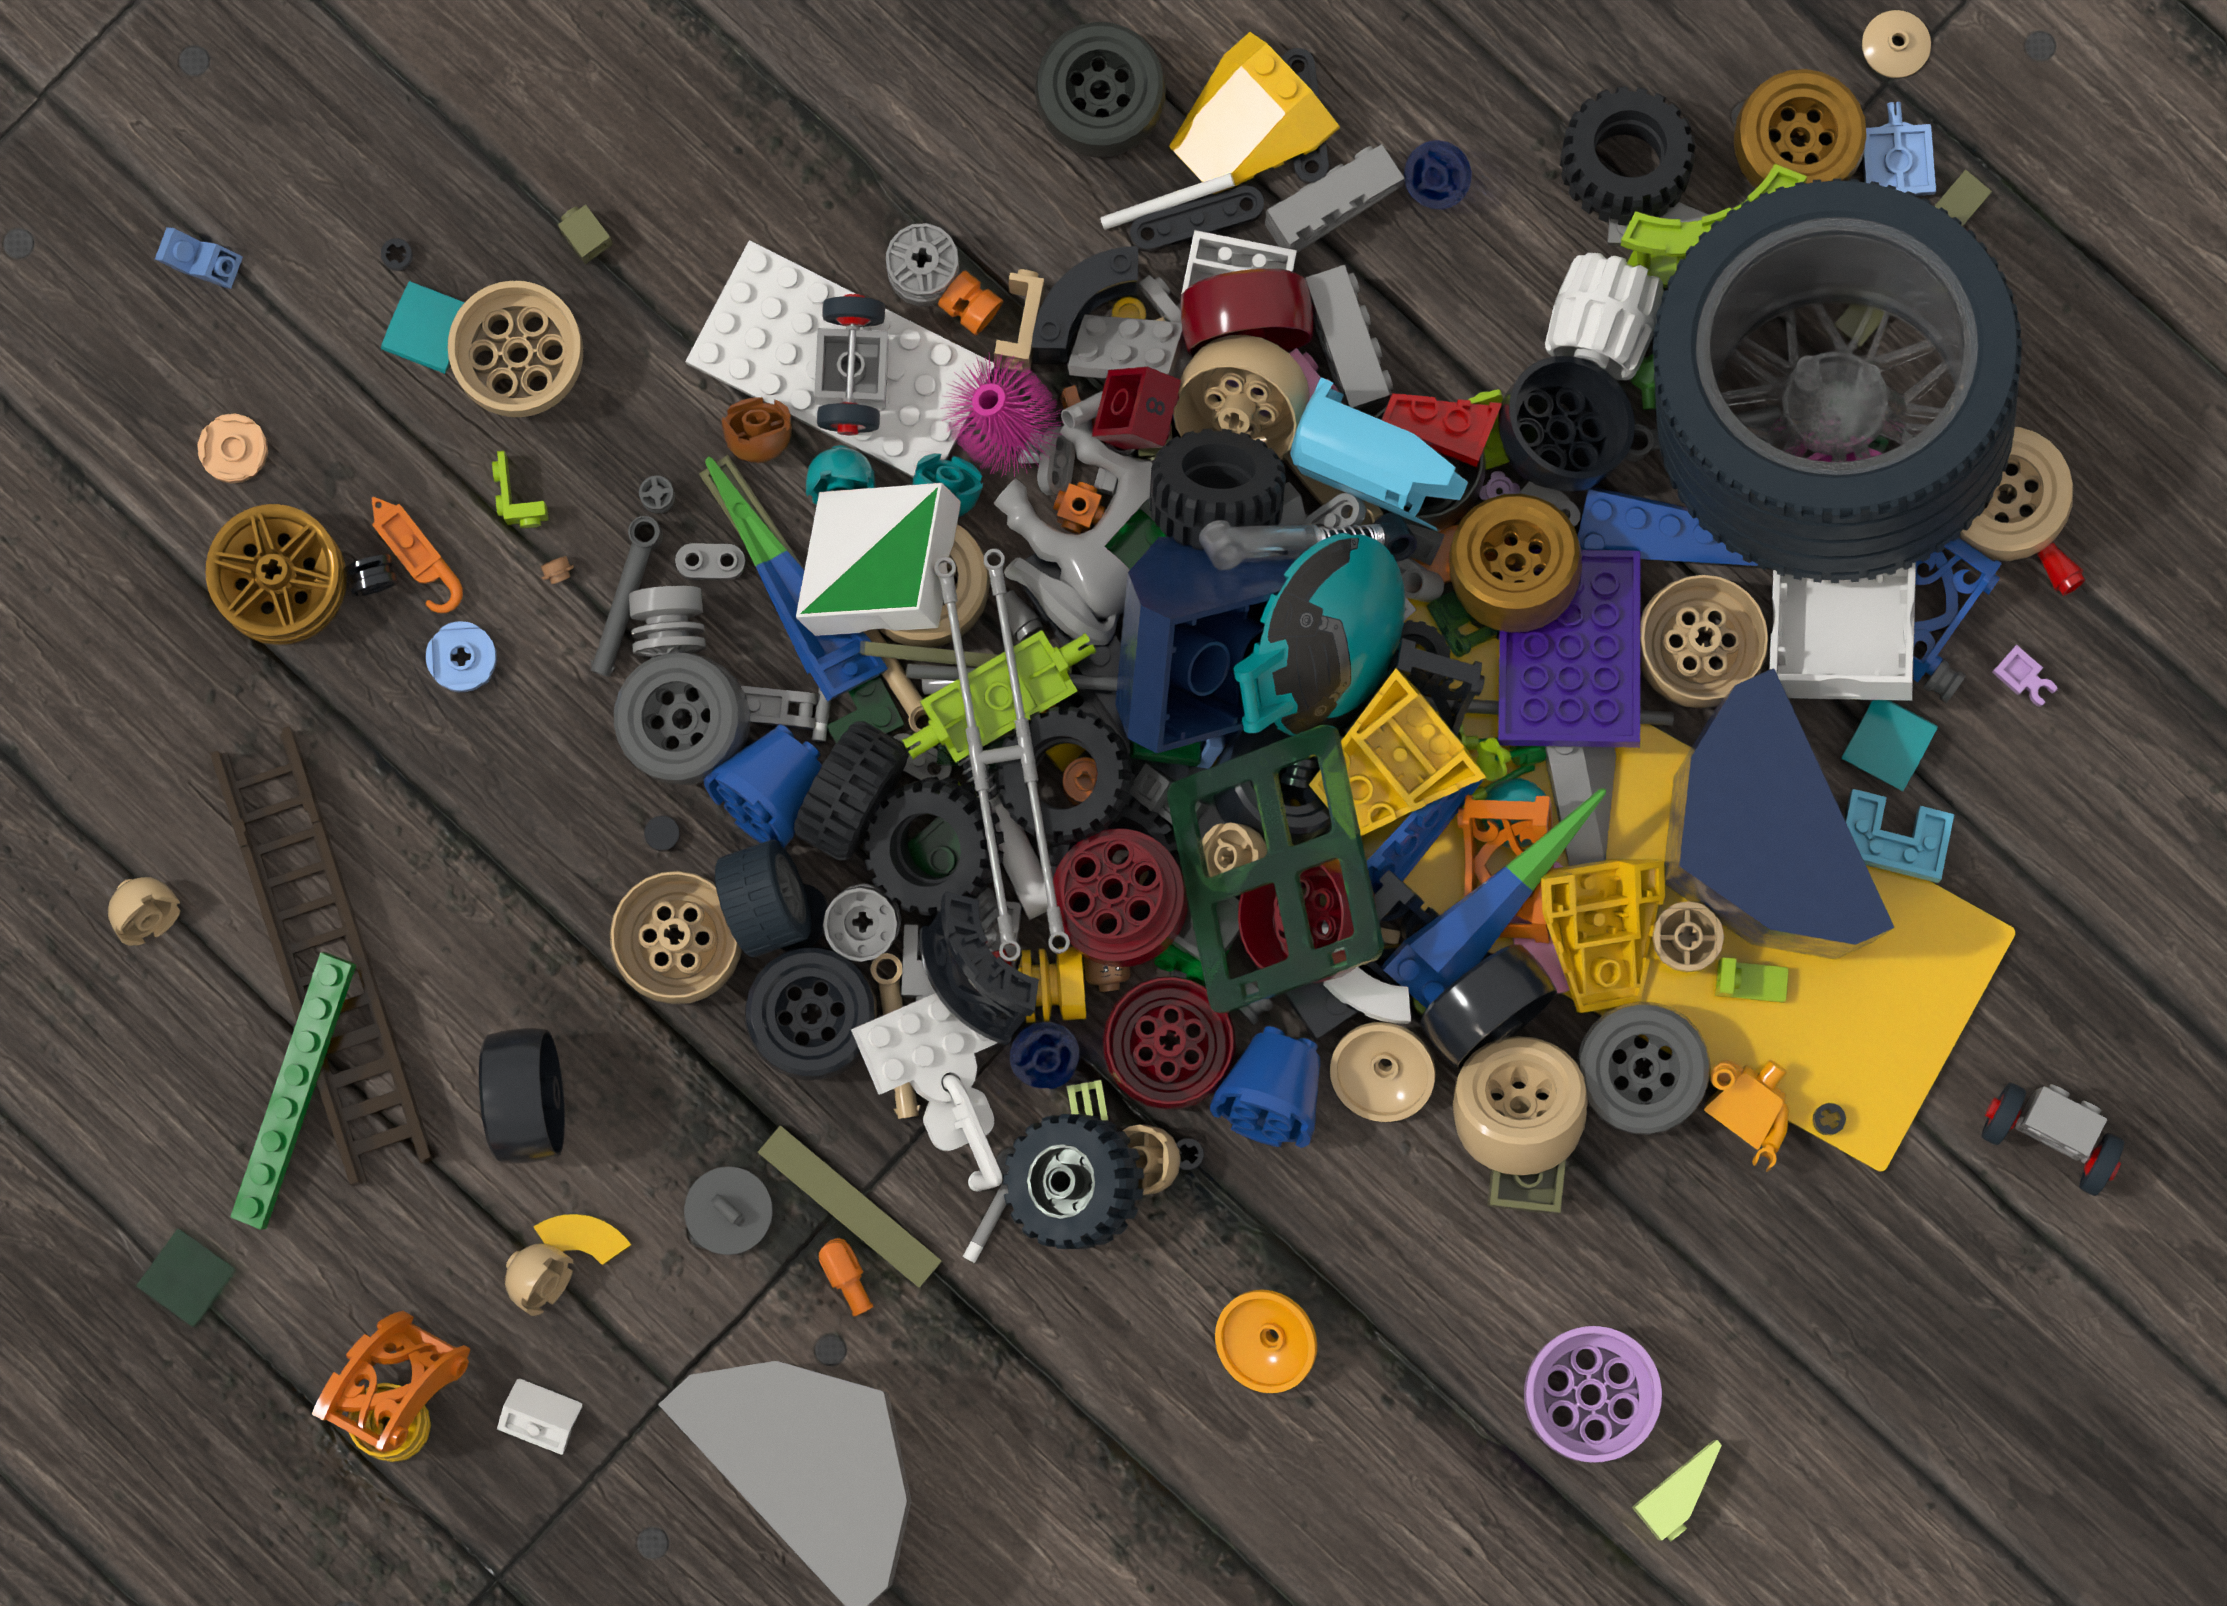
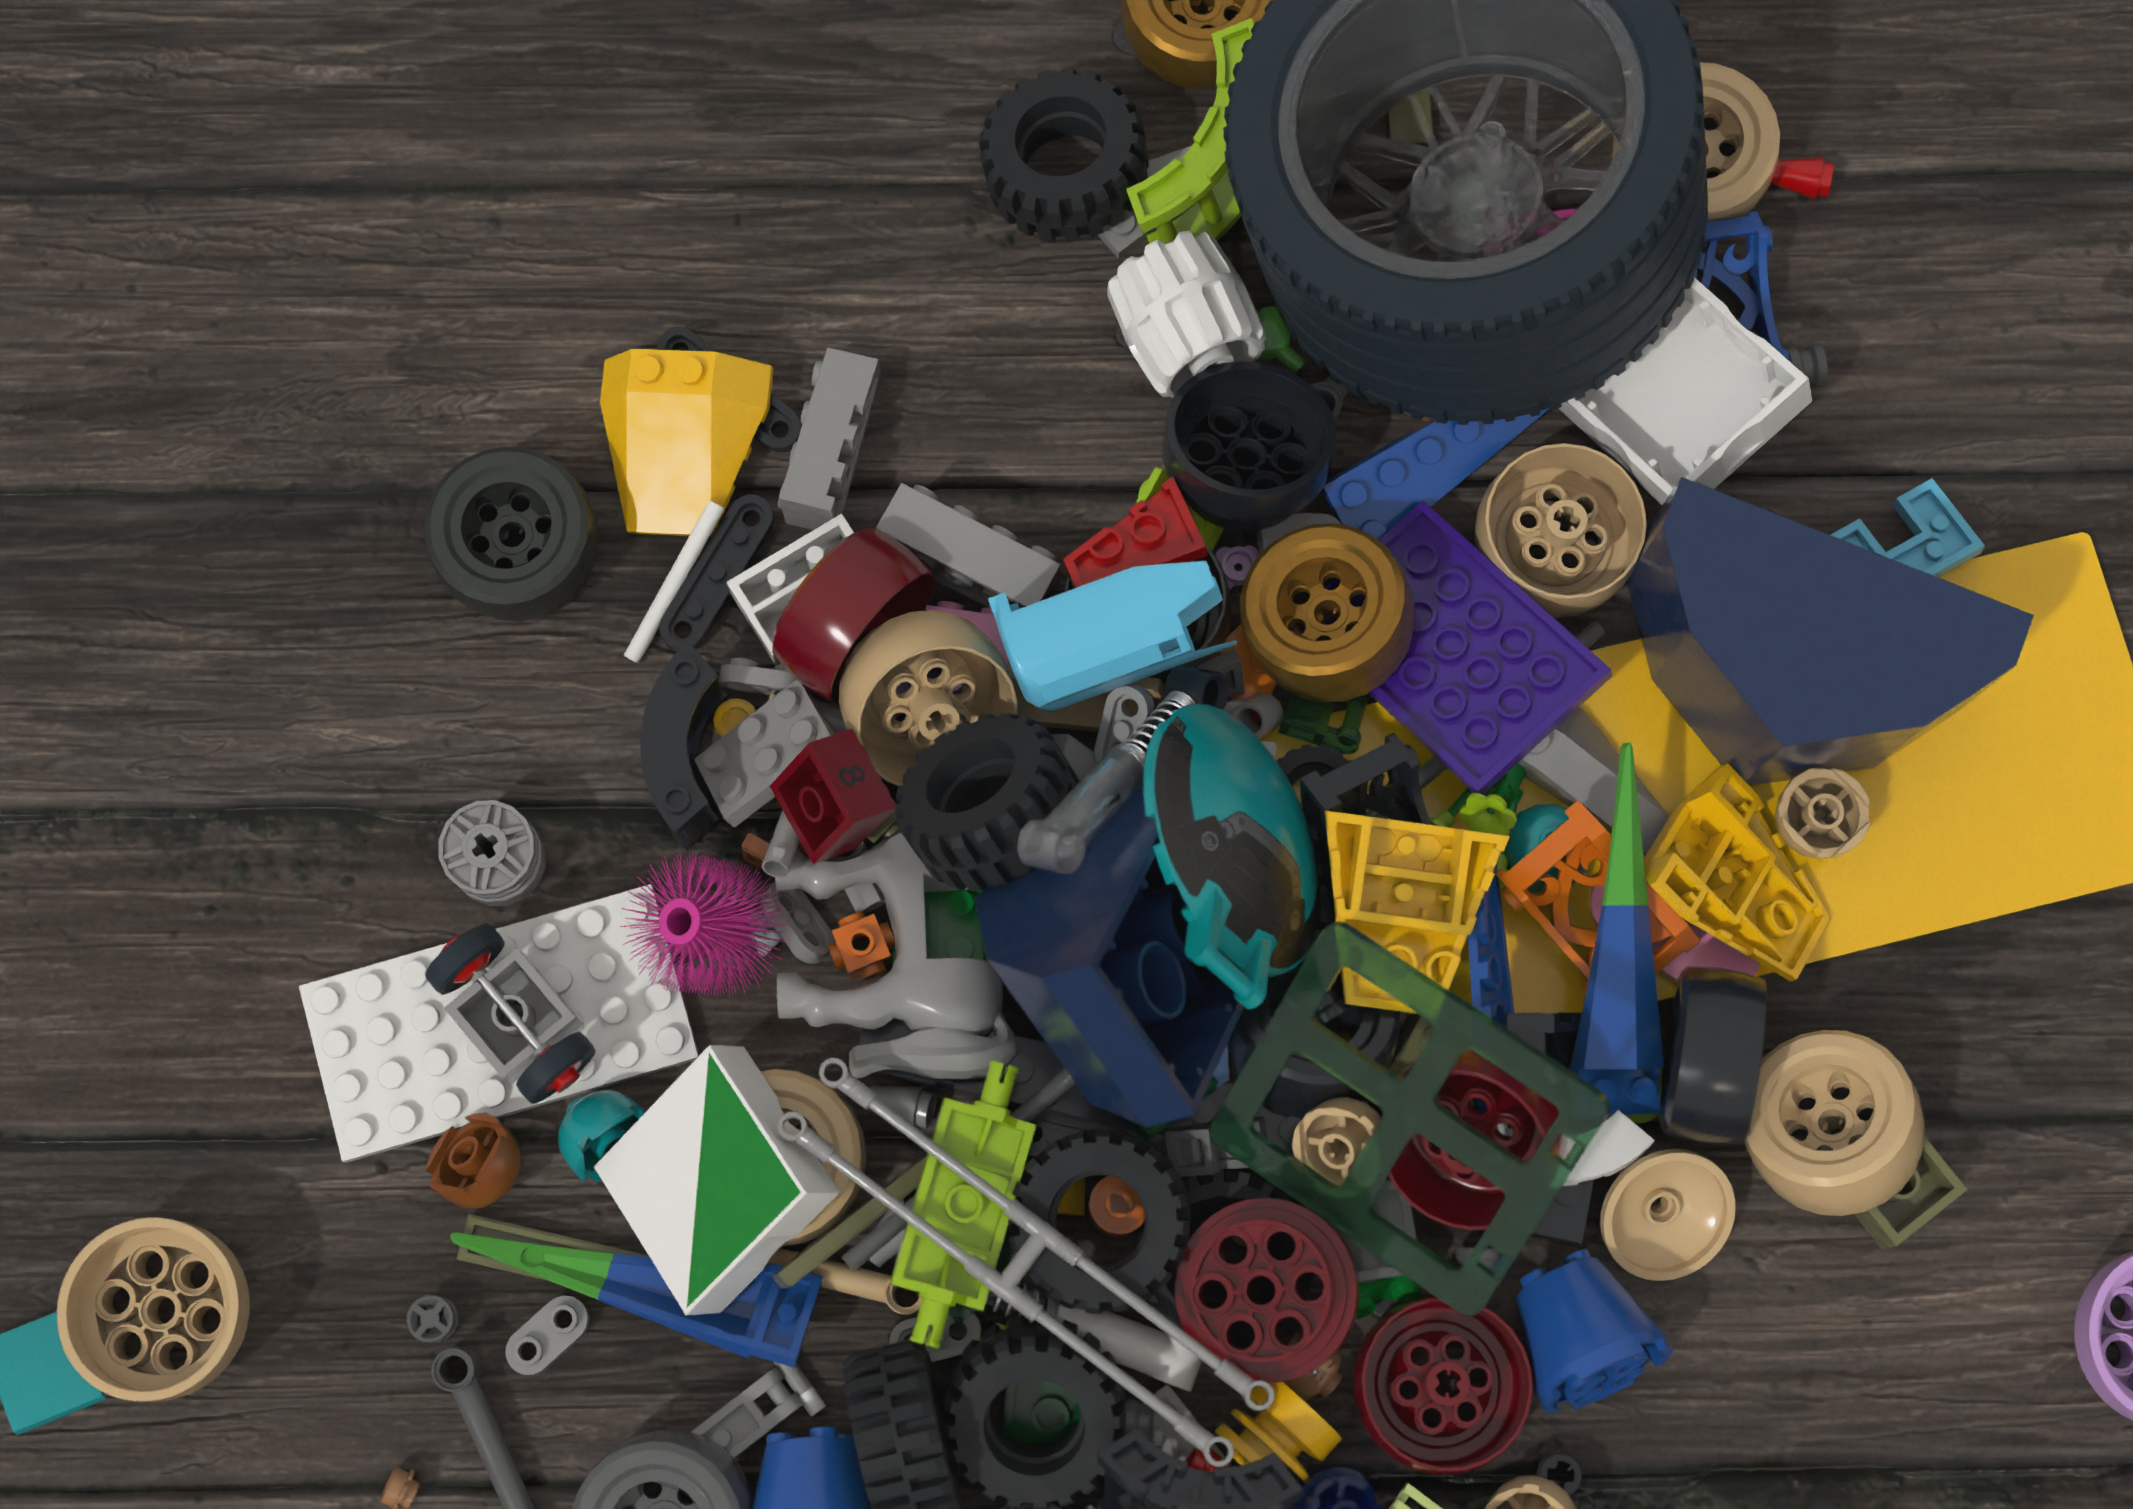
camera: 45 degrees left, 5 degrees down
(526, 514) = (316, 1464): lime bracket -> none
(584, 233) = (125, 1129): olive brick -> none
(667, 615) = (558, 1438): light grey wheel -> none
(872, 706) = (846, 1330): dark green plate -> none
(957, 475) = (714, 1024): teal cylinder -> none
(970, 302) = (573, 847): orange wheel -> none
(1030, 285) = (617, 777): tan panel -> none
(1437, 174) = (906, 328): clear blue cone -> none
(1688, 1064) = (1939, 930): dark grey wheel -> none
(1751, 981) = (1911, 801): lime bracket -> none
(1751, 1105) = (2031, 918): light orange torso -> none
(1831, 1108) = (2092, 869): black bush -> none
(1889, 742) = (1812, 467): teal slope -> none
(2021, 672) = (1860, 299): lavender plate -> none

